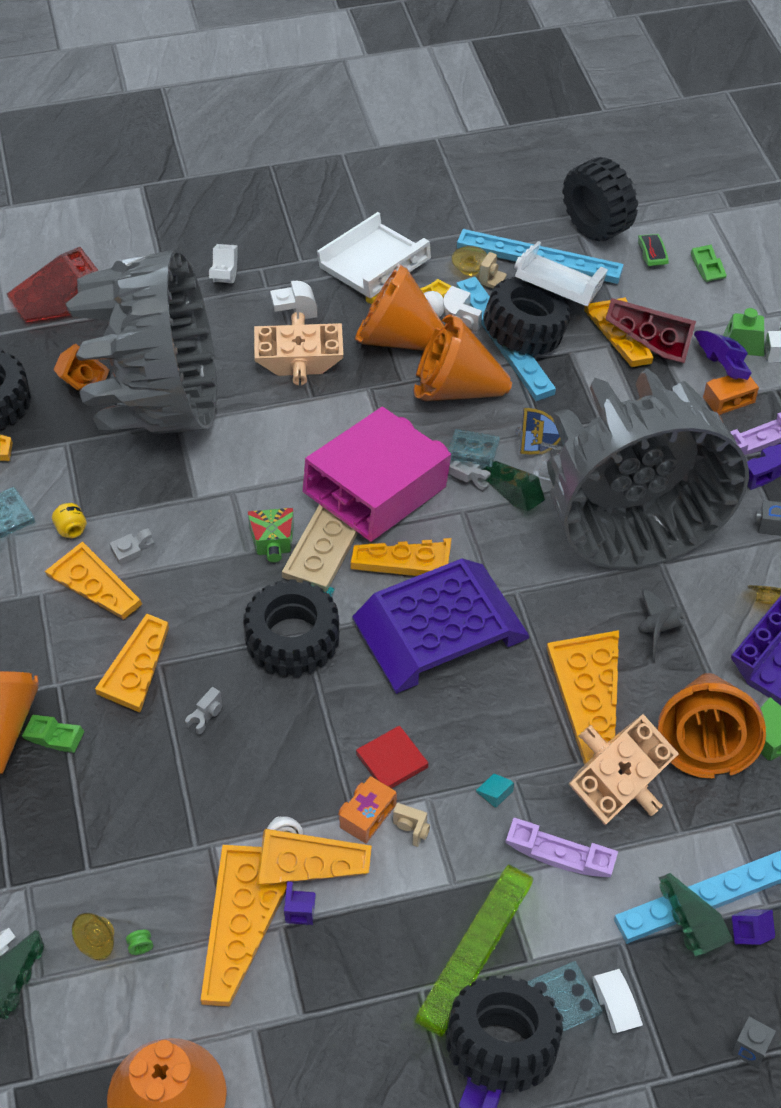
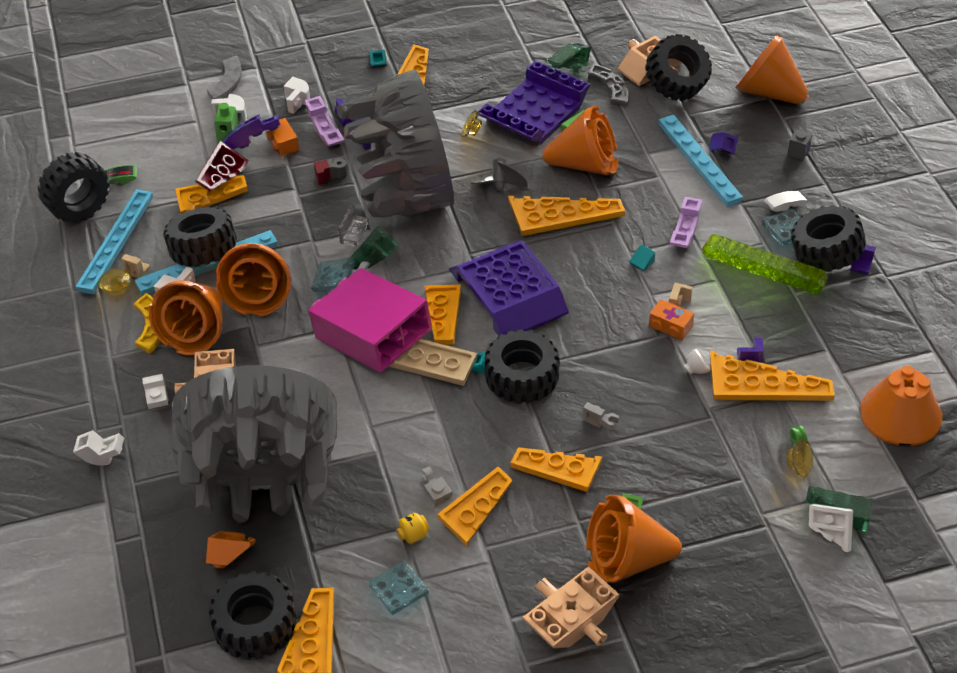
camera: 90 degrees left, 5 degrees down
(51, 286) = (104, 580): clear red wedge -> none
(272, 532) = (422, 390): bright green torso -> none
(306, 857) = (718, 345): light orange wing -> none
(370, 254) = (103, 344): white panel -> none
(392, 758) = (624, 312): red tile -> none
(535, 429) = (318, 240): shield -> none
(558, 277) = (162, 212): white panel -> none
(640, 755) = (626, 188): light nougat slope -> none
(699, 921) = (728, 161): clear green slope -> none
(707, 263) = (143, 146): bright green slope -> none

